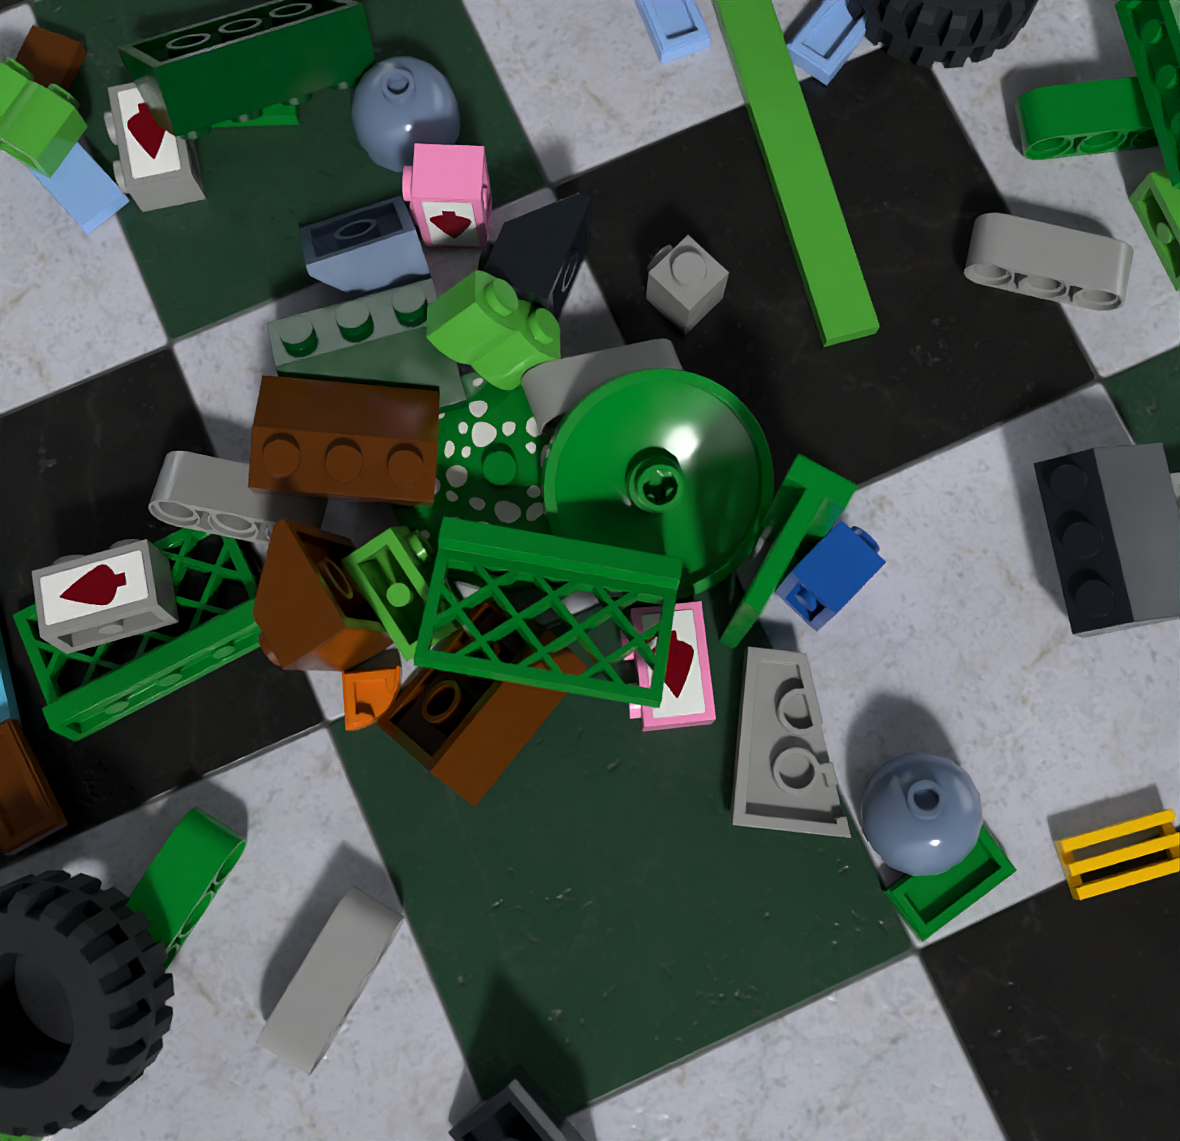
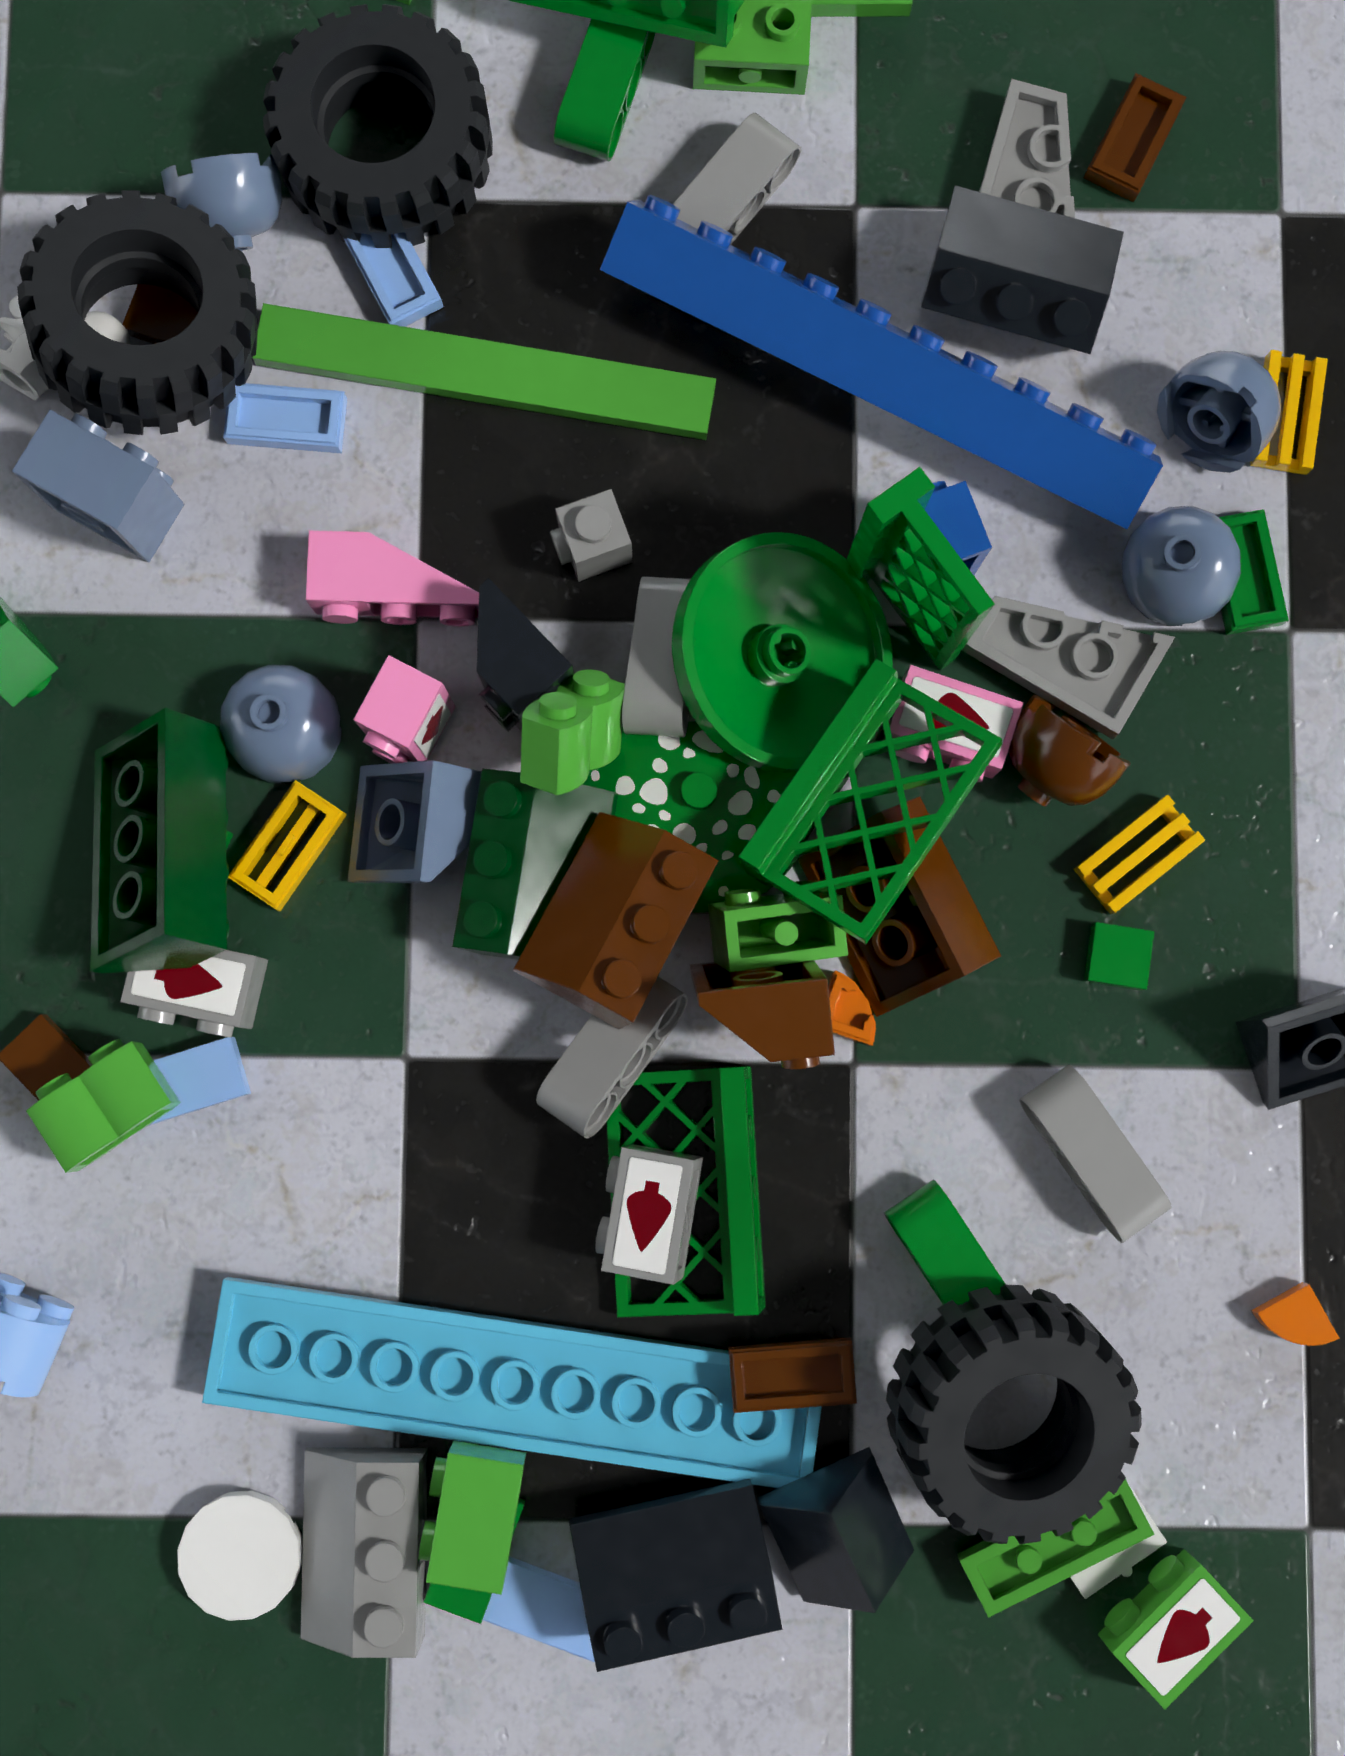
camera: 70 degrees left, 5 degrees up
(341, 192) = (306, 858): none -> yellow tile
(529, 921) = (1119, 956): none -> green tile
(559, 118) = (369, 577): none -> bright pink slope
(678, 921) = (1176, 824): none -> yellow tile
(686, 780) = (1061, 757): none -> reddish brown cylinder
(965, 460) = (882, 362): none -> blue brick
(1089, 783) = (1221, 409): none -> sand blue cylinder

